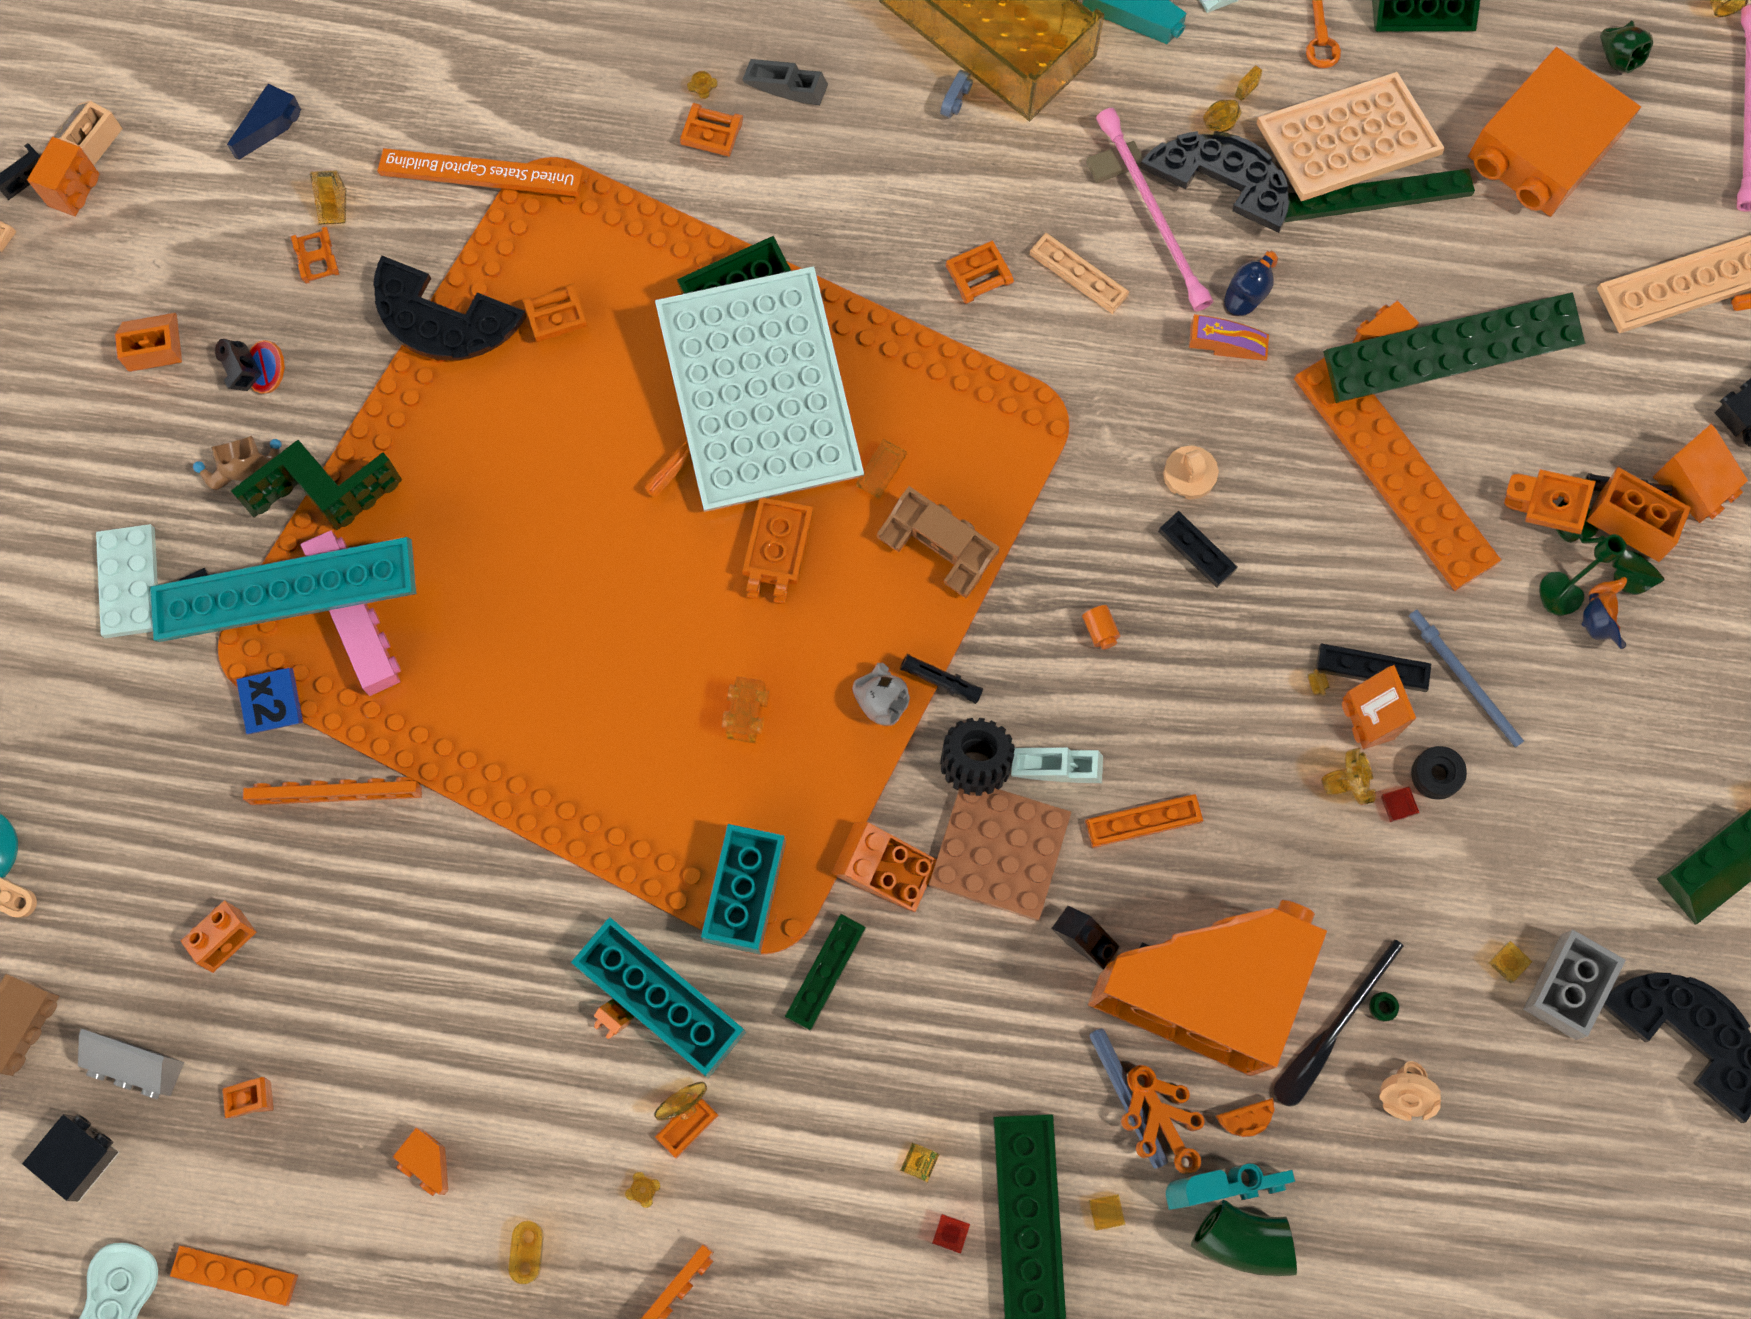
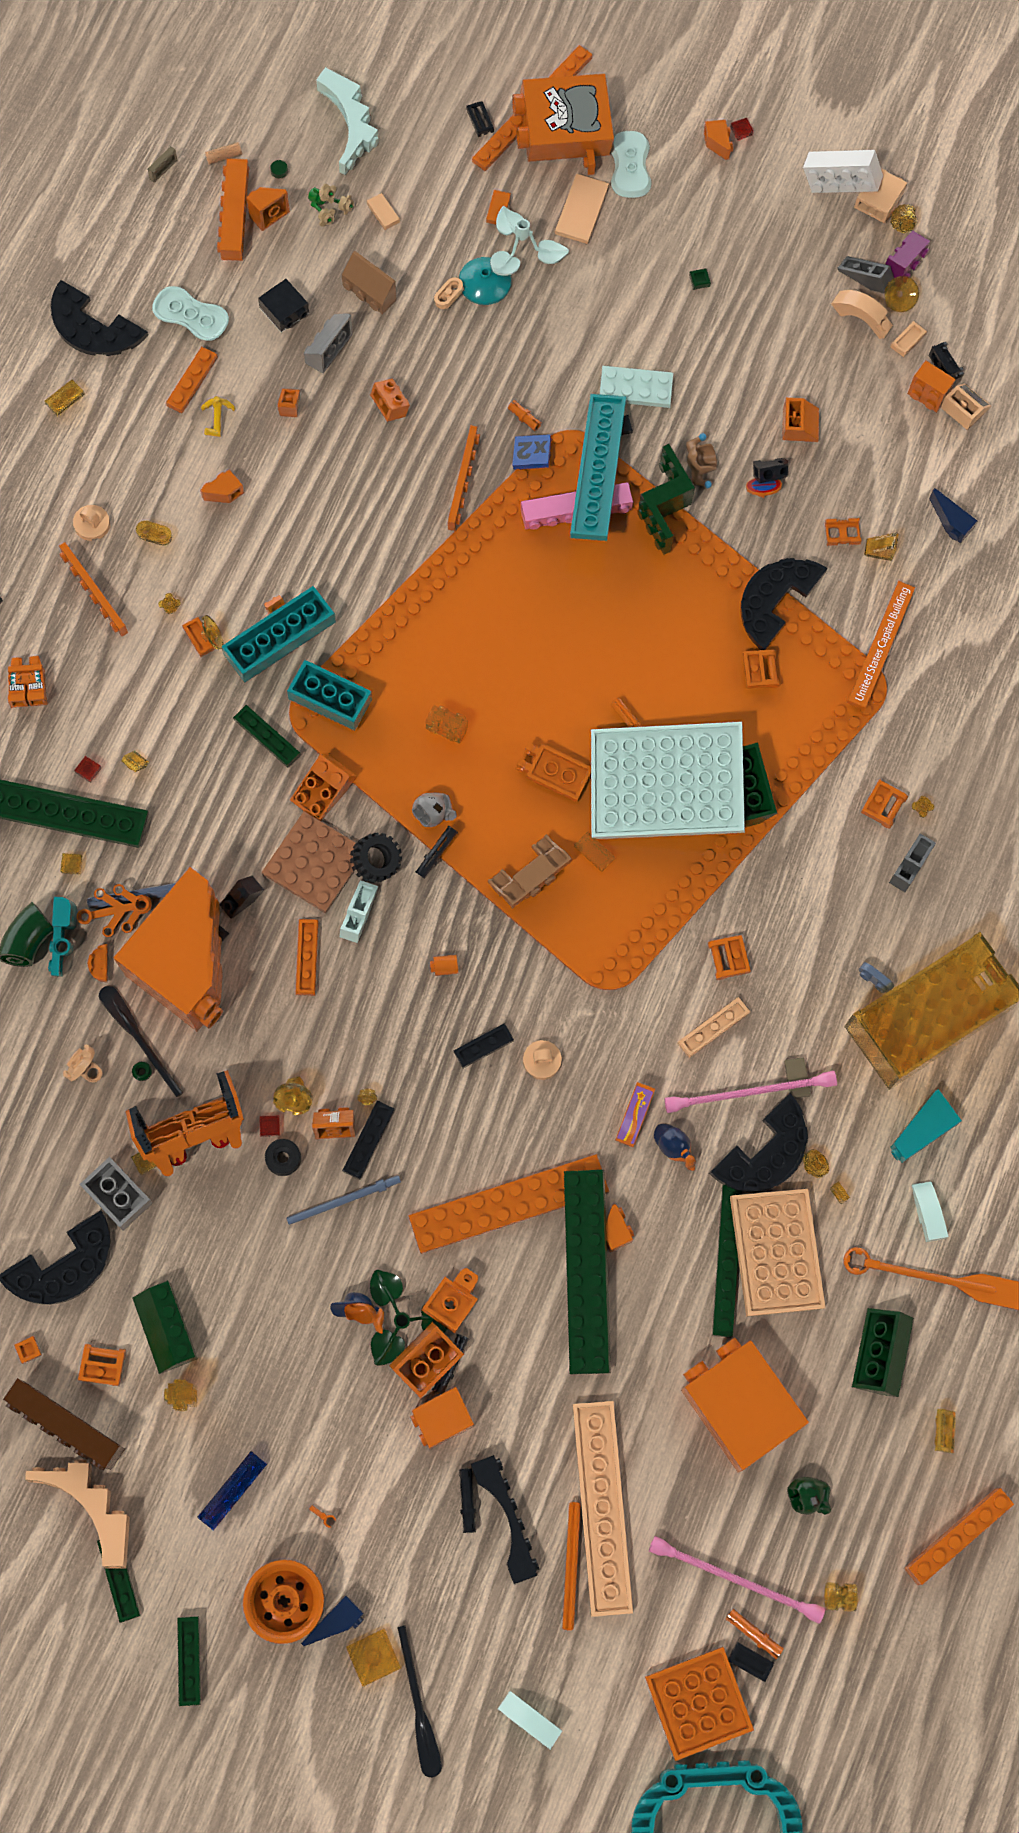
camera: 100 degrees right, 0 degrees up
(207, 729) = (524, 415): none -> orange pin
(275, 1214) = (217, 403): none -> yellow piece
(1427, 873) = (168, 1139): none -> orange container

